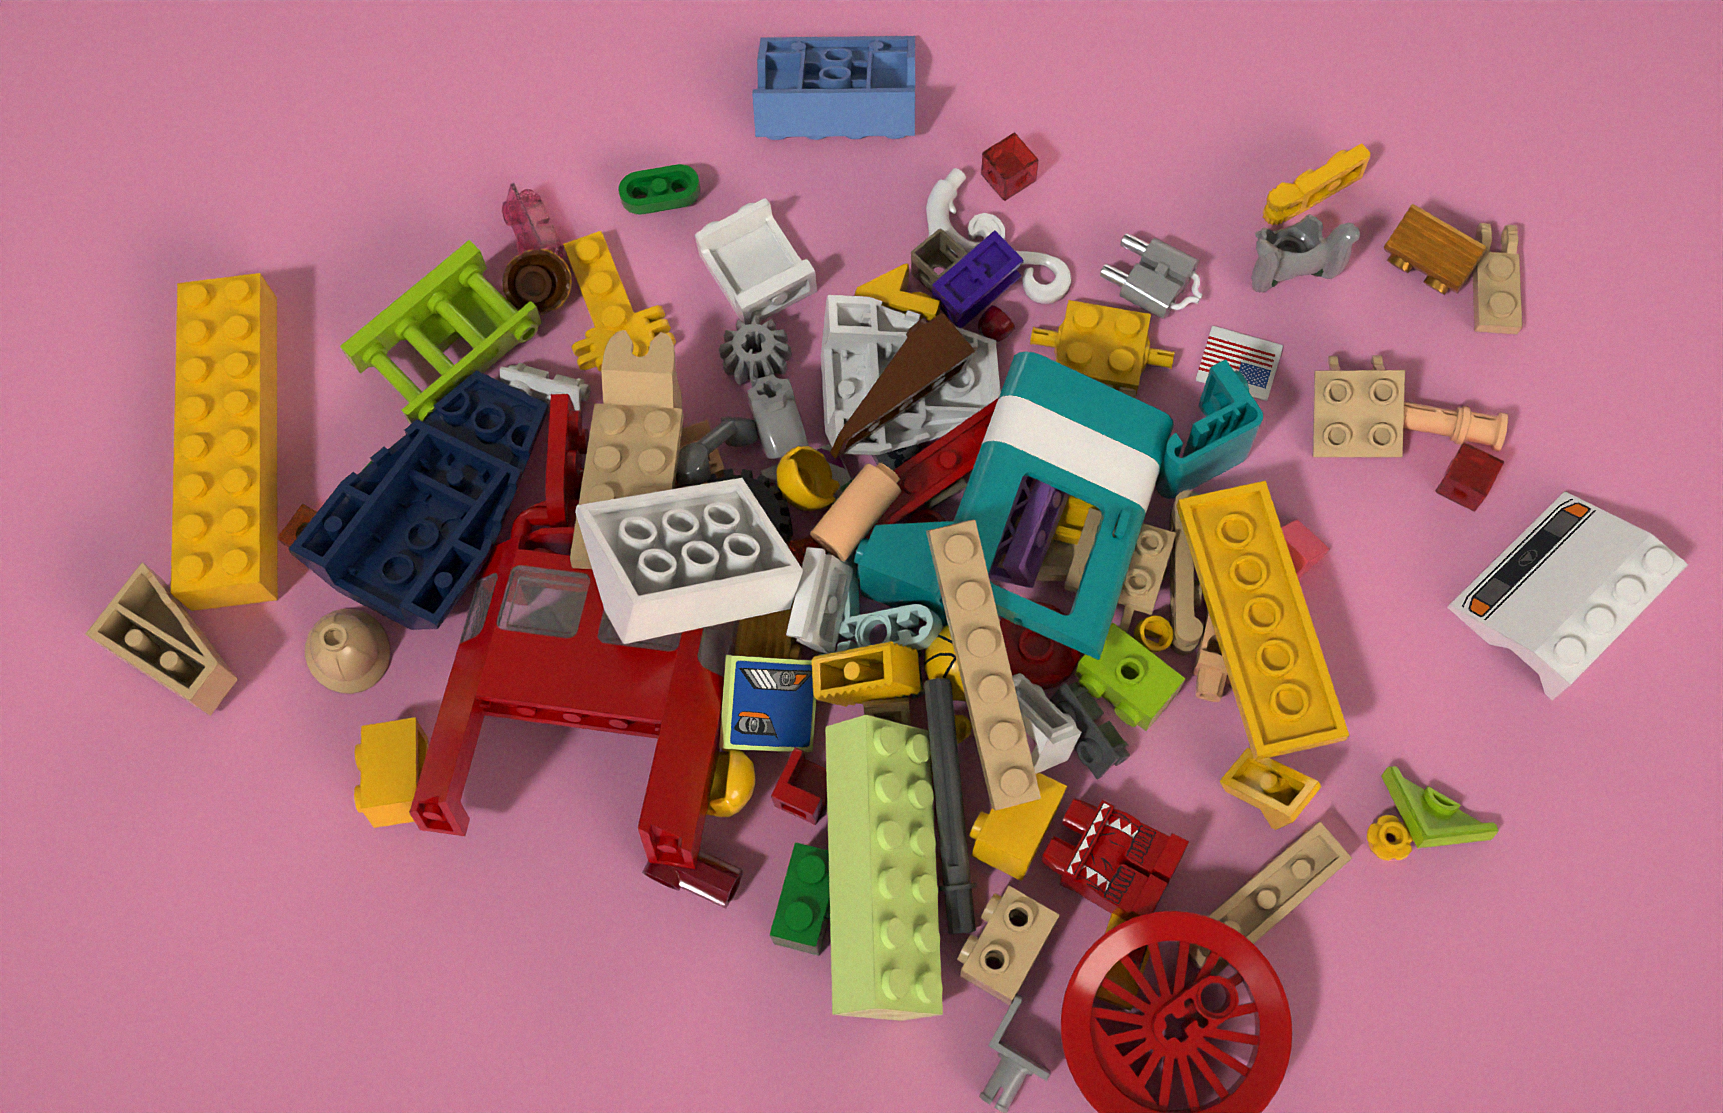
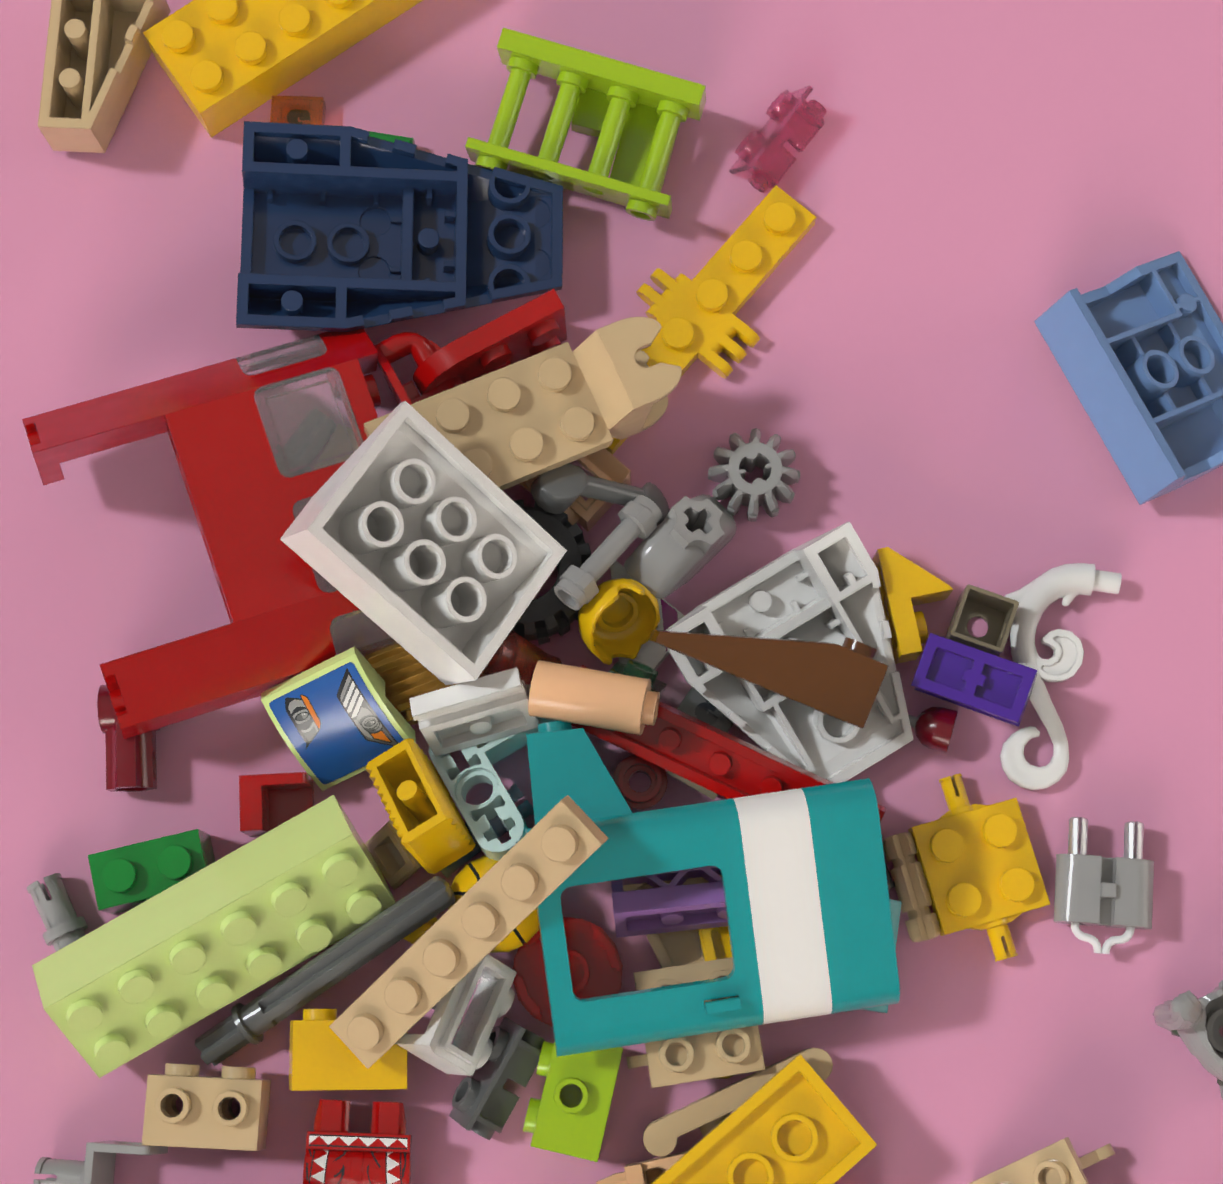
camera: 60 degrees right, 10 degrees up
(347, 651) = (192, 243): tan hat -> none
(390, 769) = (78, 366): yellow brick -> none
(537, 278) = (707, 185): reddish brown hair -> none
(538, 385) = (585, 288): white hinge -> none
(660, 188) = (909, 251): green plate -> none
(732, 783) = (234, 727): yellow hair -> none
(755, 262) = (869, 412): white panel -> none
(769, 481) = (579, 585): none -> light grey bar
(799, 994) = (58, 913): none -> light grey pin
(1009, 166) = (1158, 638): clear red piece -> none
(1154, 627) = (629, 1100): yellow hinge -> none
(1218, 439) = (916, 1067): teal piece -> none
(1247, 354) = (1050, 1039): sticker -> none

